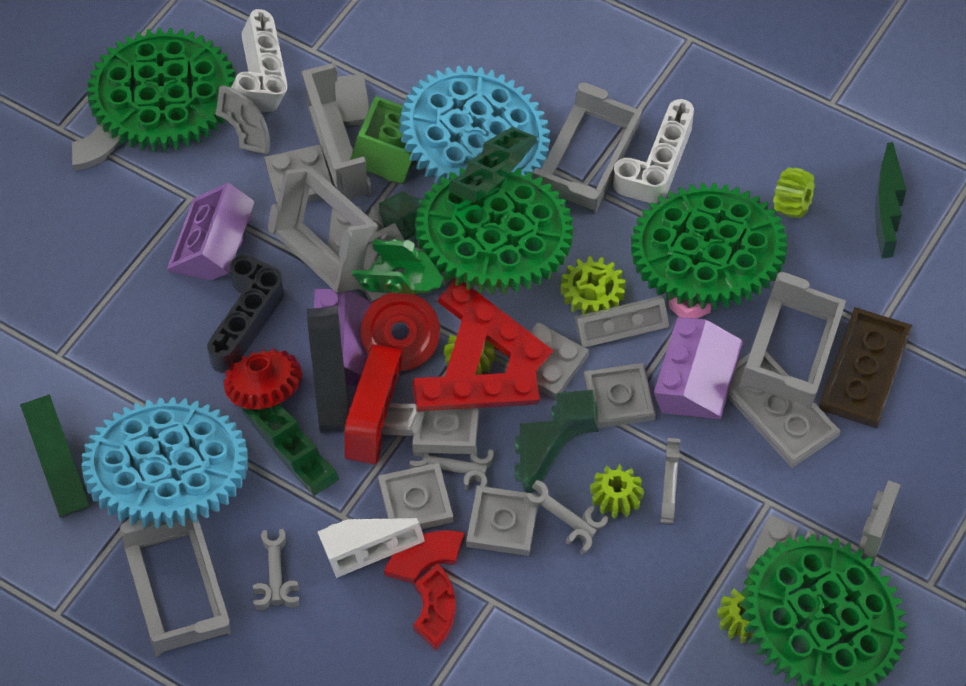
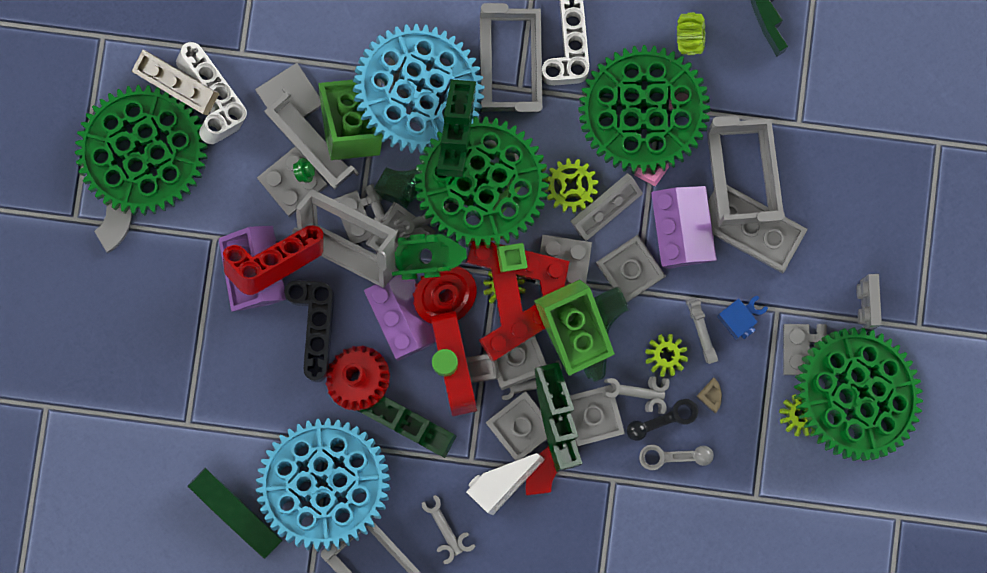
camera: 25 degrees left, 25 degrees up
(230, 38) = (175, 82): none -> plate
(234, 219) = (274, 263): none -> red beam
(245, 119) = (226, 153): light grey tile -> none
(315, 158) = (303, 170): none -> green plate
(328, 368) = (408, 354): black beam -> none
(362, 383) = (444, 362): none -> bright green tile
(438, 606) = (577, 504): red tile -> none
(460, 498) = (557, 417): none -> dark green slope
(489, 310) = (511, 257): none -> bright green tile
(525, 406) = (575, 326): none -> bright green slope
(547, 555) = (637, 430): none -> black piece
(607, 612) = (702, 455): none -> light grey piece
(649, 557) = (711, 395): none -> dark tan tile
(720, 488) = (739, 318): none -> blue brick
(865, 367) = (803, 162): dark brown tile -> none

